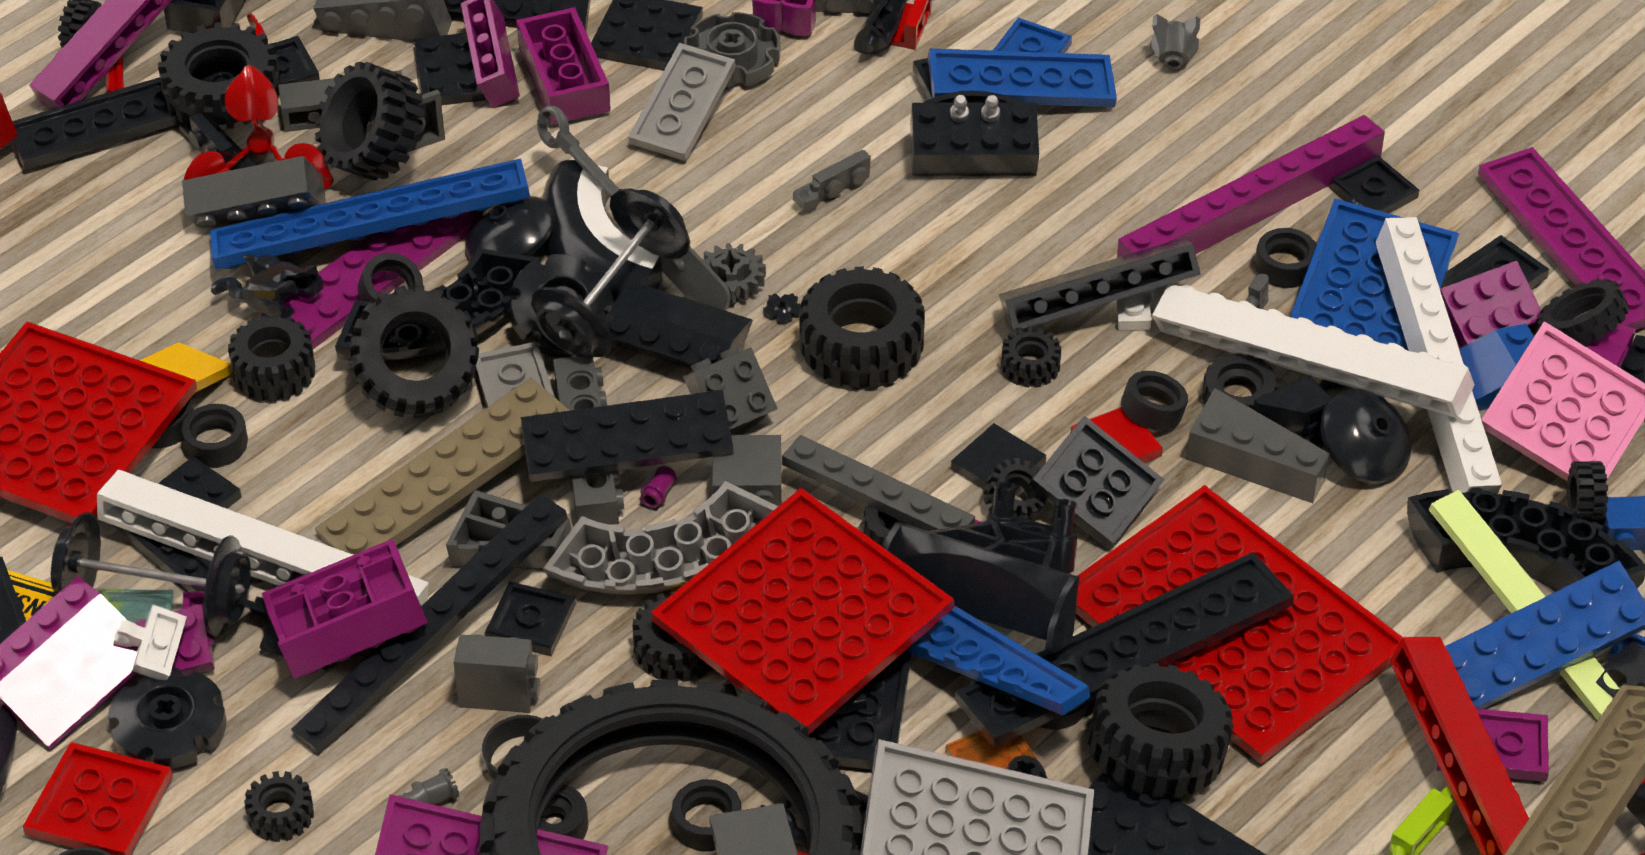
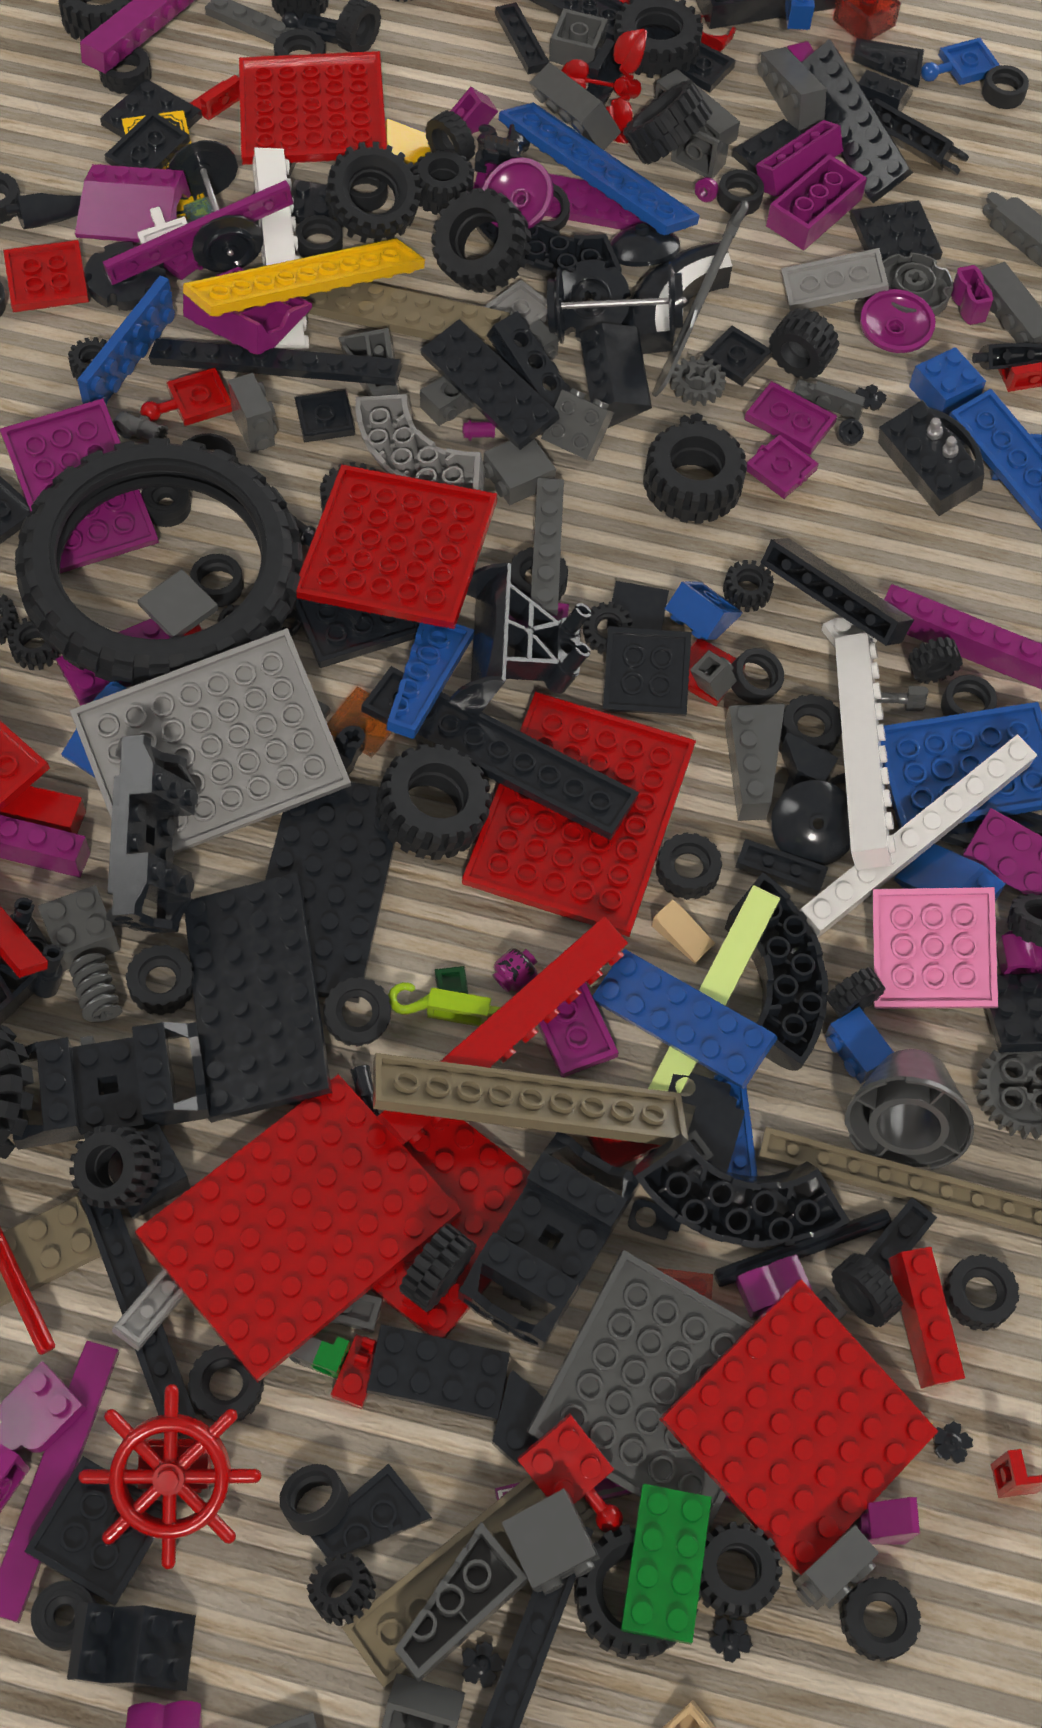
camera: 55 degrees right, 15 degrees up
(98, 196) = (521, 37): none -> black plate
(154, 147) = (577, 37): none -> dark grey brick
(182, 294) = (475, 109): none -> magenta slope
(193, 613) = (181, 239): none -> magenta tile
(213, 301) = (452, 125): none -> black tyre
(260, 391) = (381, 165): none -> black tyre
(263, 489) = (318, 225): none -> black tyre
(299, 753) = (128, 344): none -> blue plate
(343, 532) = (302, 277): none -> yellow plate
(372, 267) = (523, 180): none -> magenta dish
(413, 725) = (194, 397): none -> red plate
(459, 141) = (711, 187): none -> magenta plate
(491, 105) = (740, 179): none -> black tyre
(594, 384) = (518, 358): none -> black brick
(719, 224) = (738, 355): none -> black plate
(760, 160) = (803, 343): none -> black tyre
(785, 86) = (895, 329): none -> magenta dish
(834, 224) = (790, 416): none -> magenta plate
(841, 151) = (872, 398): none -> black plant
(882, 83) = (946, 381): none -> blue brick
(886, 187) = (850, 432): none -> black tile
(896, 253) = (781, 466): none -> magenta plate
(1042, 406) = (702, 610): none -> blue slope
(1142, 427) = (713, 675): none -> dark grey brick
(1228, 253) = (935, 660): none -> black tyre
(1357, 541) = (694, 845): none -> black tyre
(1379, 825) = (452, 979): none -> dark green tile
(1392, 490) = (781, 867): none -> black plate
(1401, 759) = (515, 969): none -> magenta head
(1425, 604) = (682, 931): none -> tan slope

